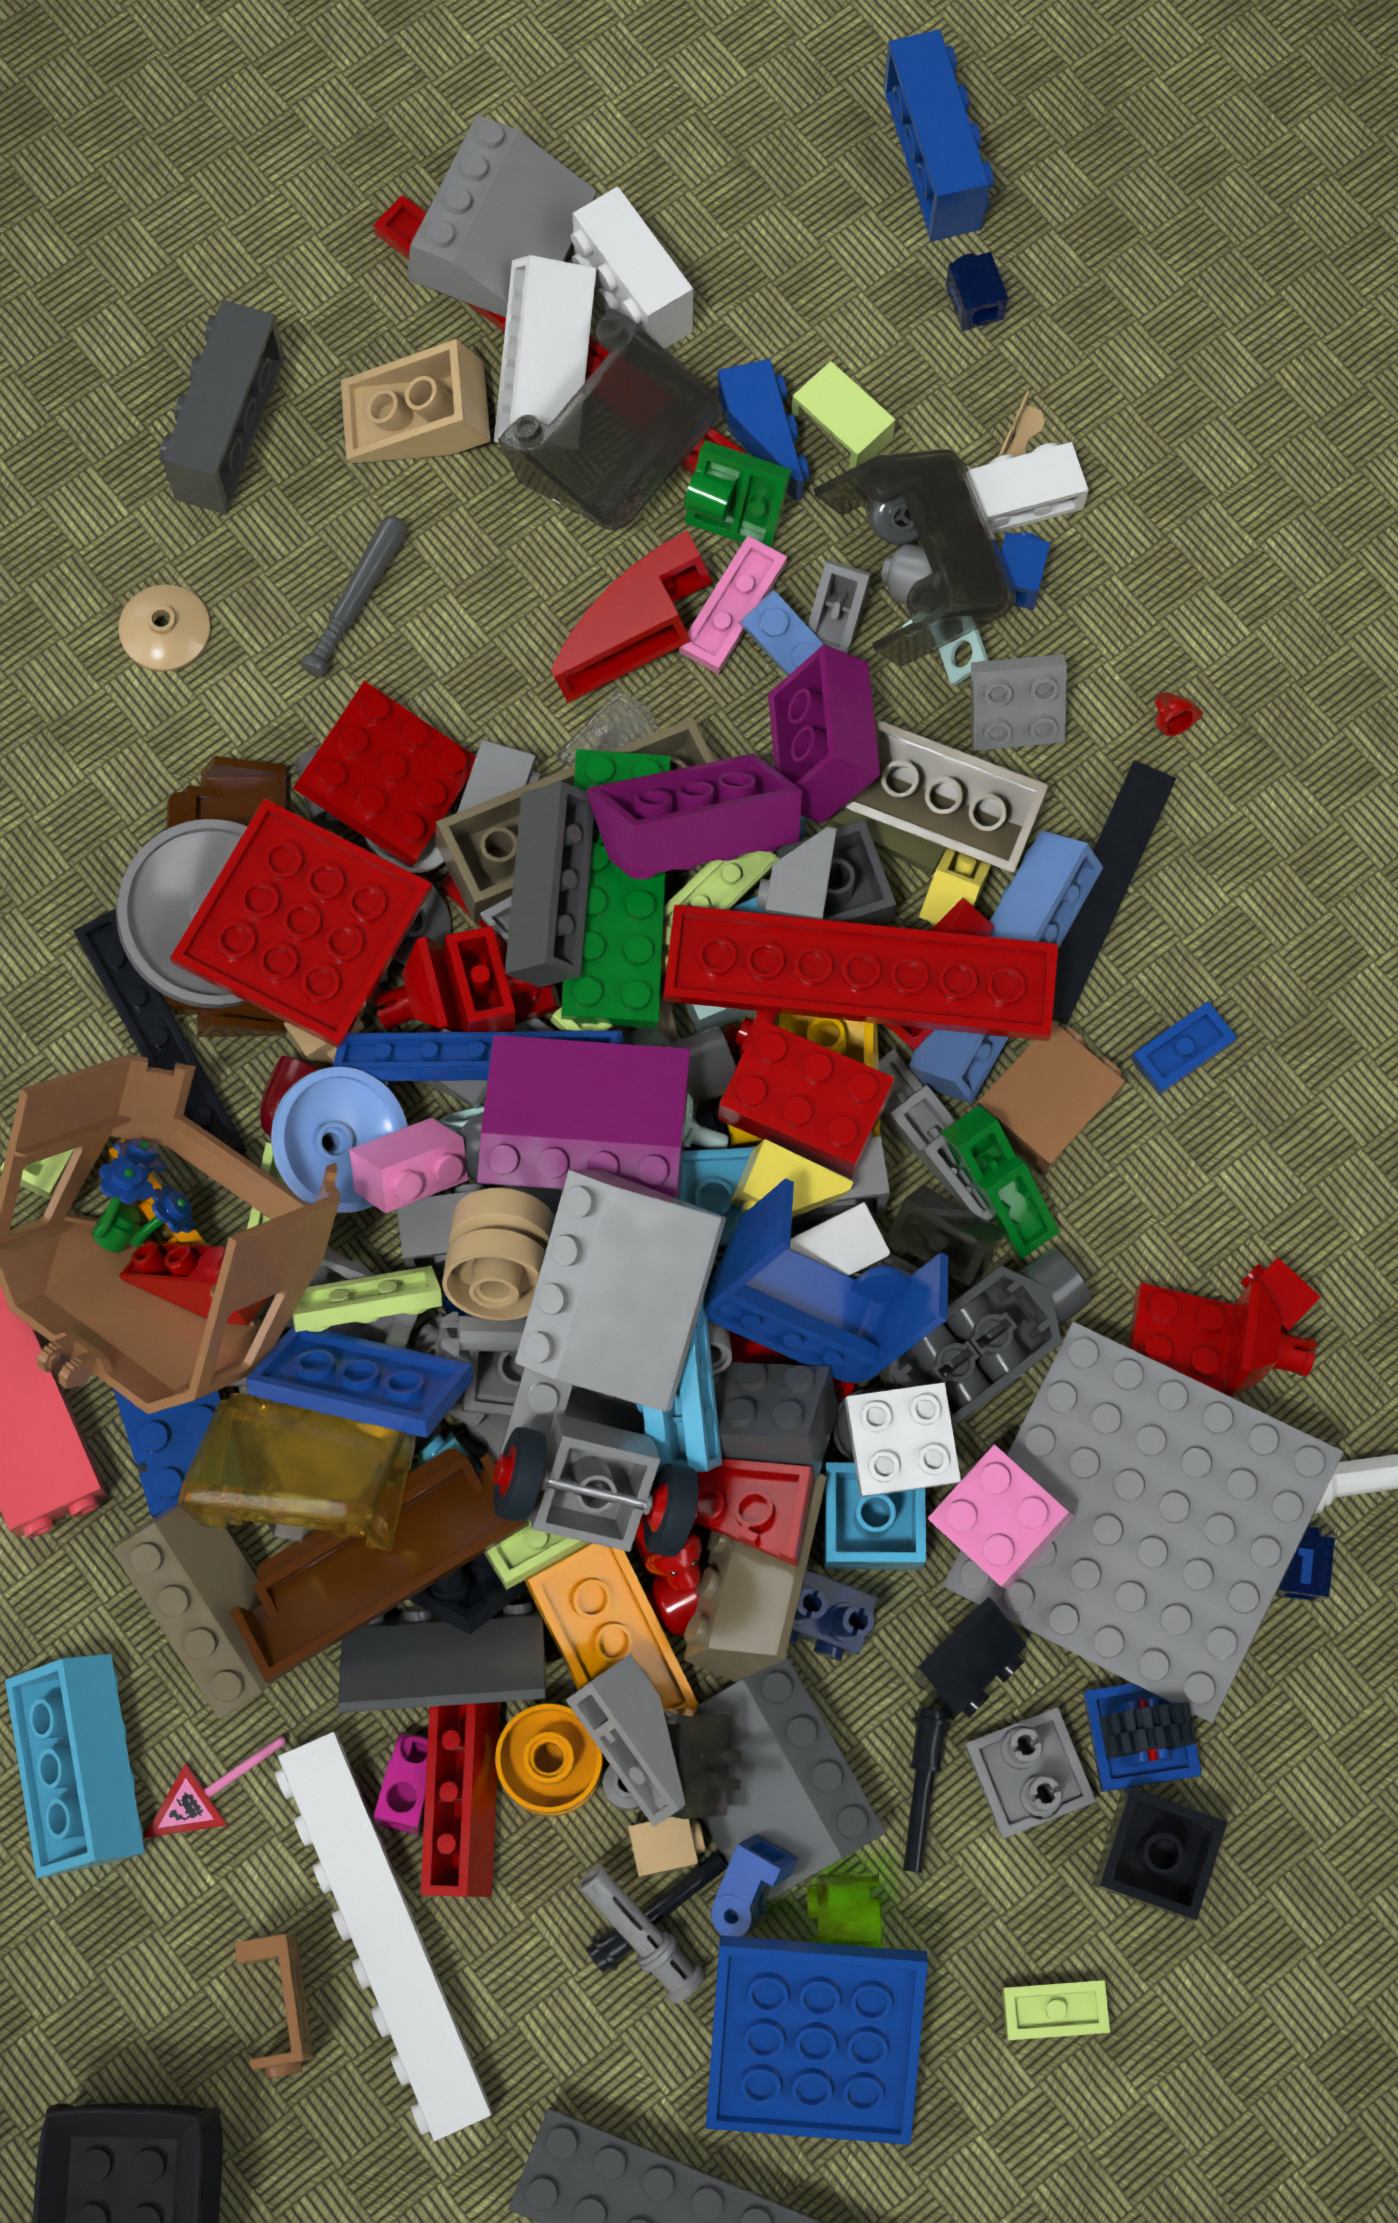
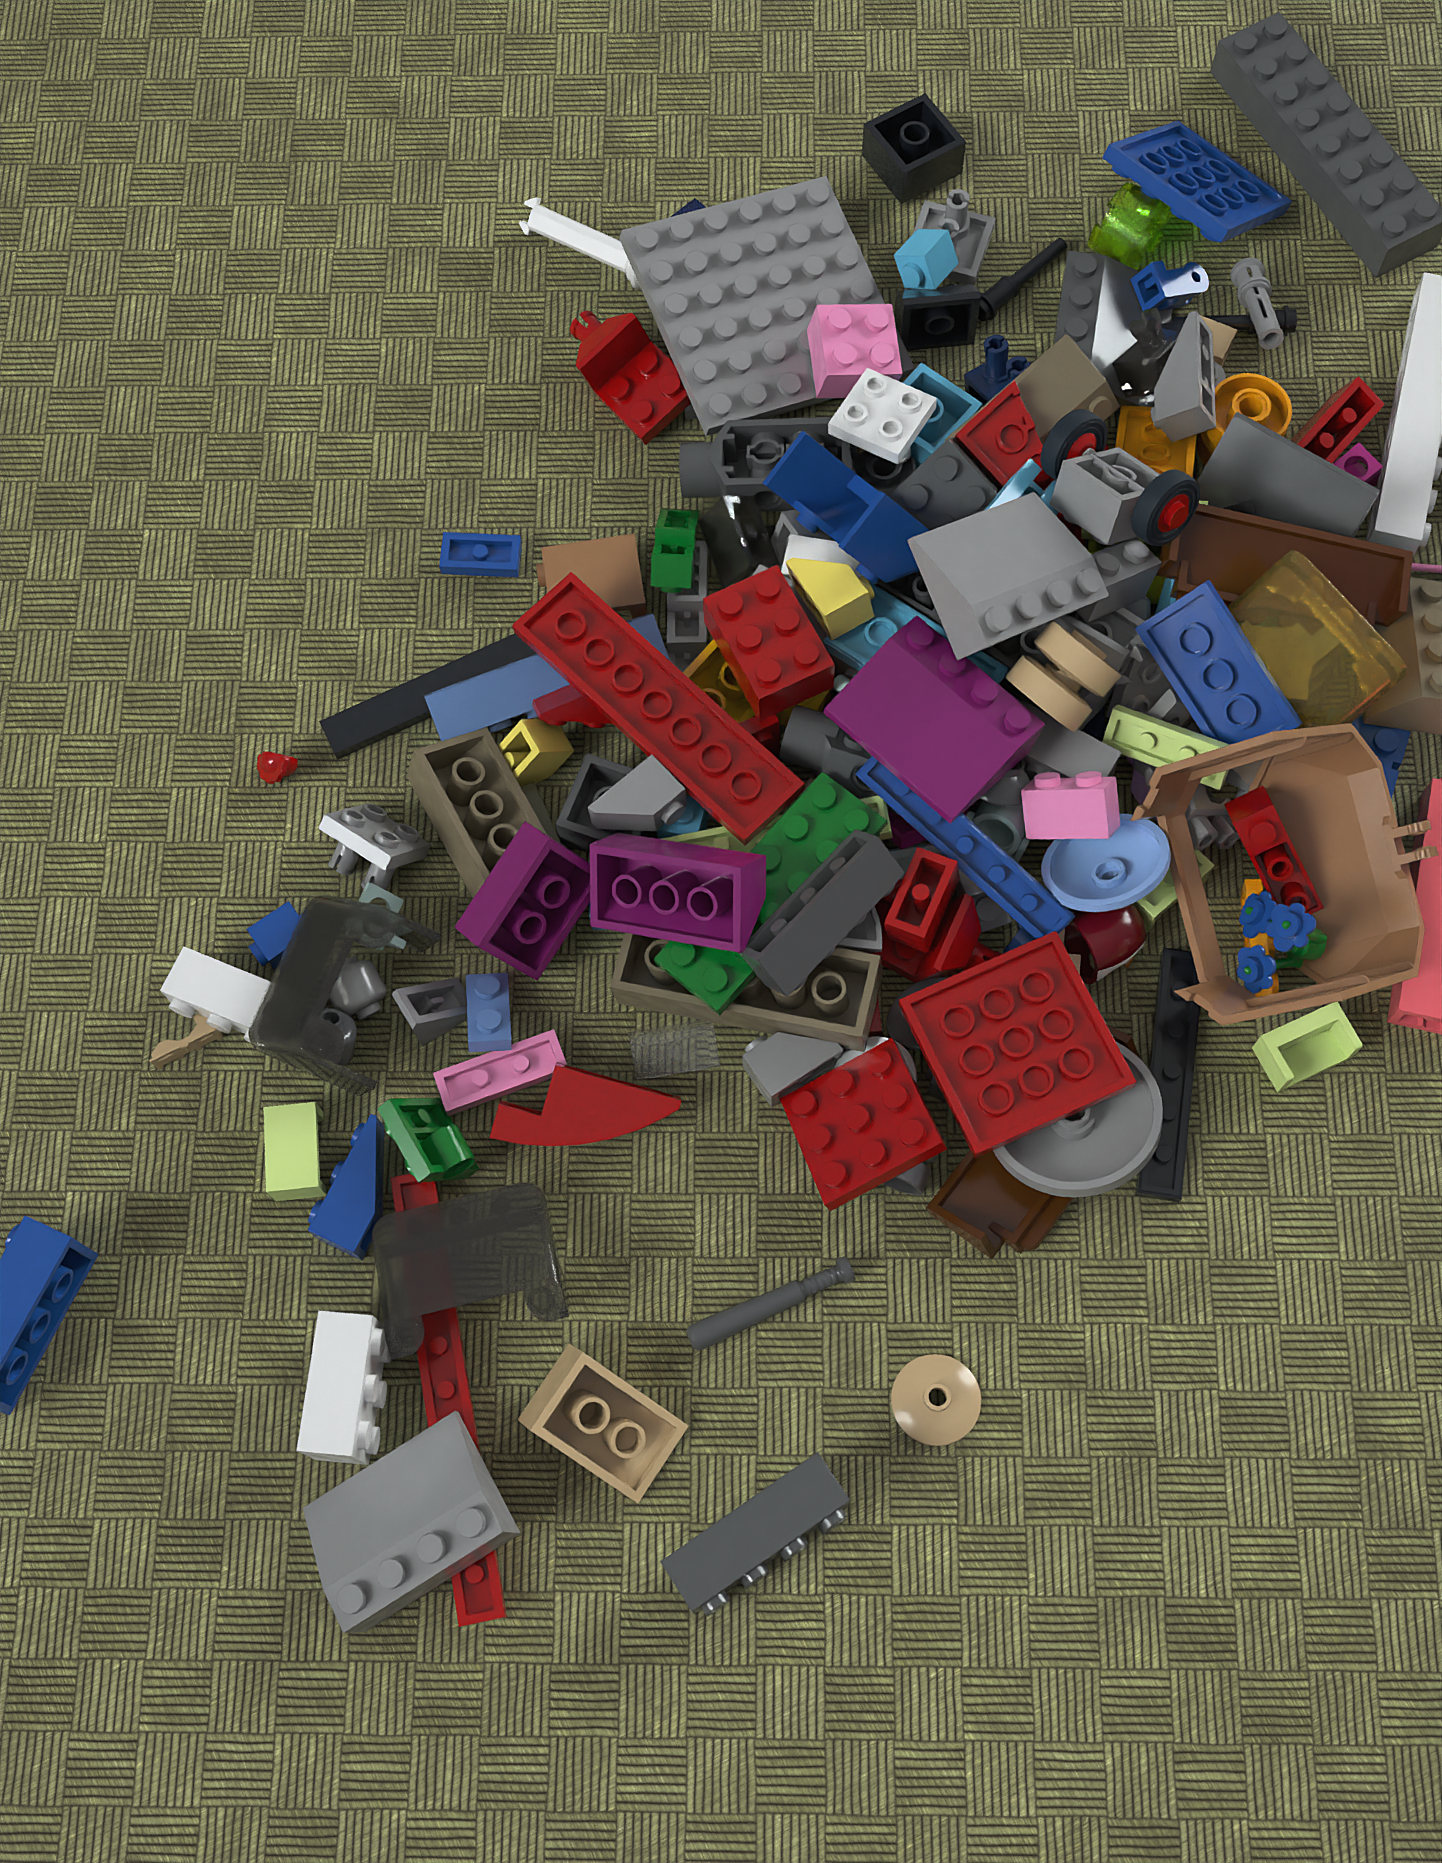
camera: 135 degrees left, 5 degrees down
(544, 338) = (468, 1374): white brick -> none
(976, 290) = (107, 1175): clear blue brick -> none
(1020, 1692) = (926, 259): none -> medium azure brick
(1055, 2010) = (1038, 127): yellowish green plate -> none
(1139, 1737) = (872, 208): plate -> none
(1286, 1290) = (563, 378): red brick -> none

